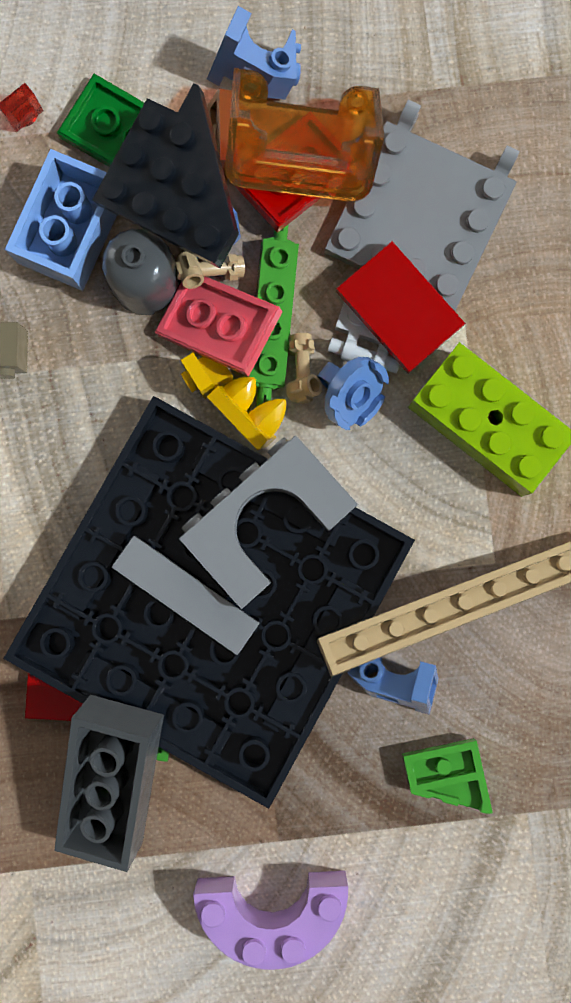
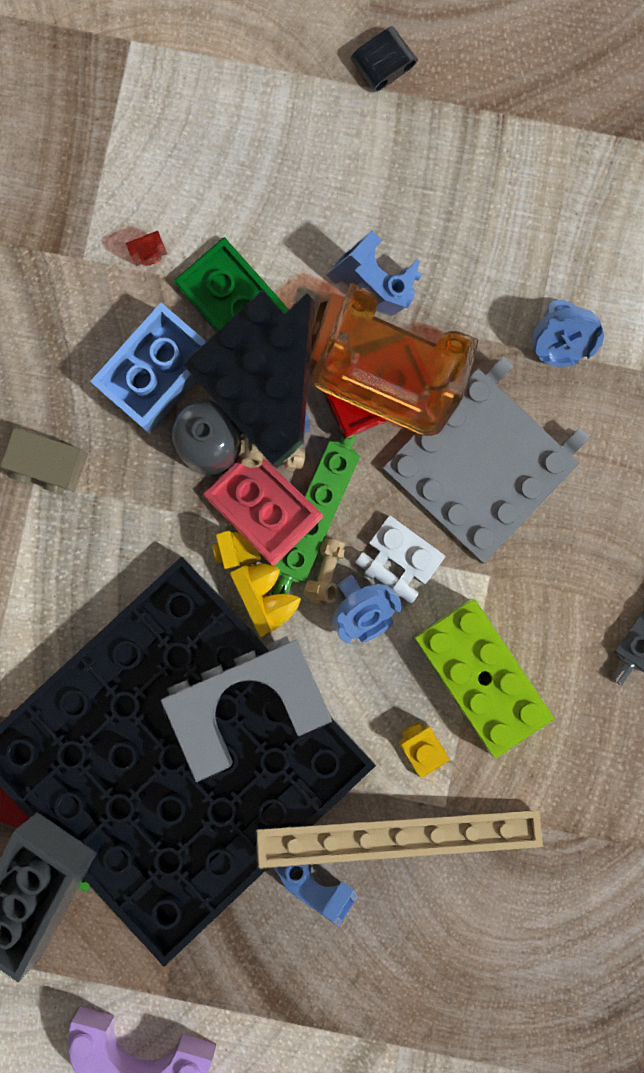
camera: 15 degrees right, 0 degrees up
(185, 595) = (151, 749): light grey tile -> none
(400, 307) = (432, 547): red tile -> none
(449, 774) = (338, 987): bright green wing -> none
(455, 511) = (423, 749): none -> yellow bracket
(465, 57) = (567, 334): none -> medium blue tile

